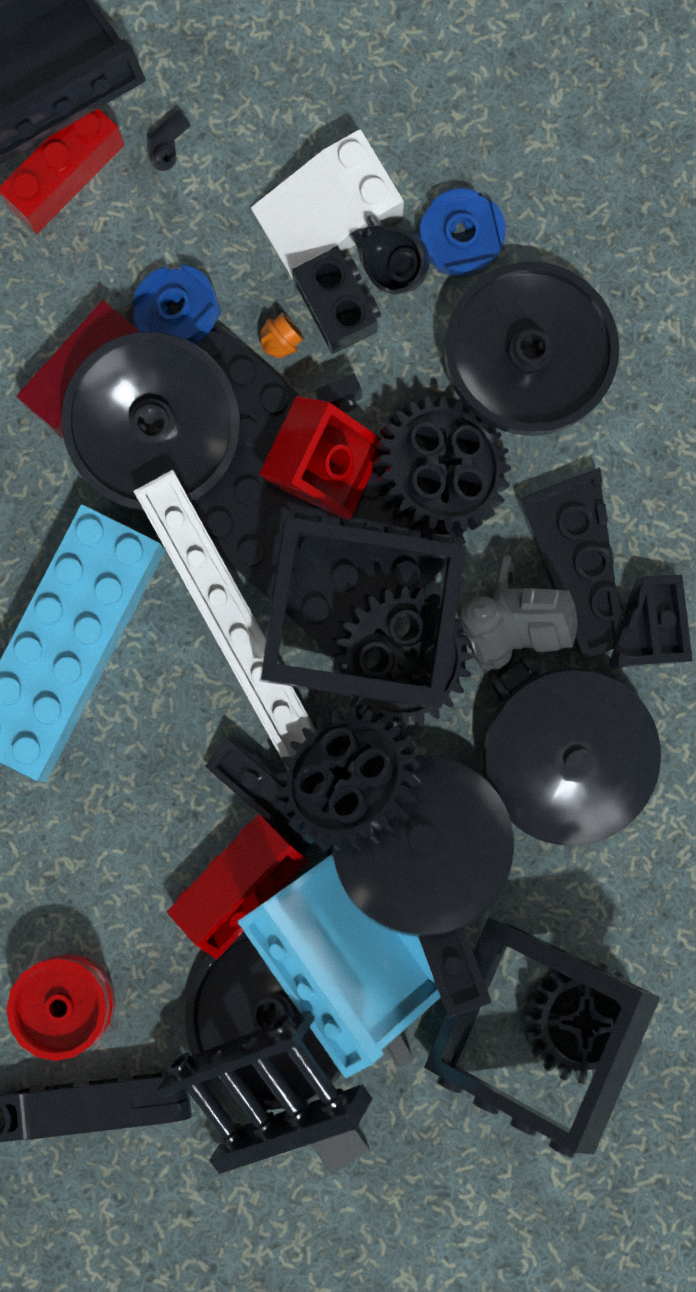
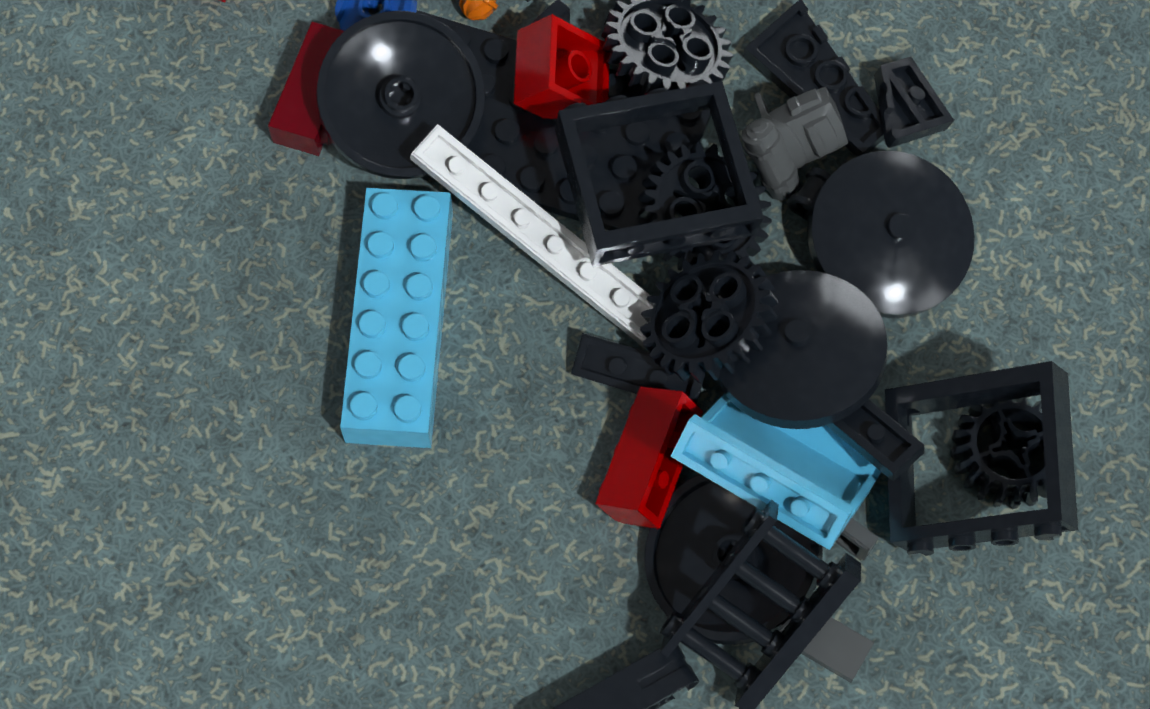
camera: 30 degrees left, 15 degrees down
(36, 1015) = (540, 652): red wheel -> none

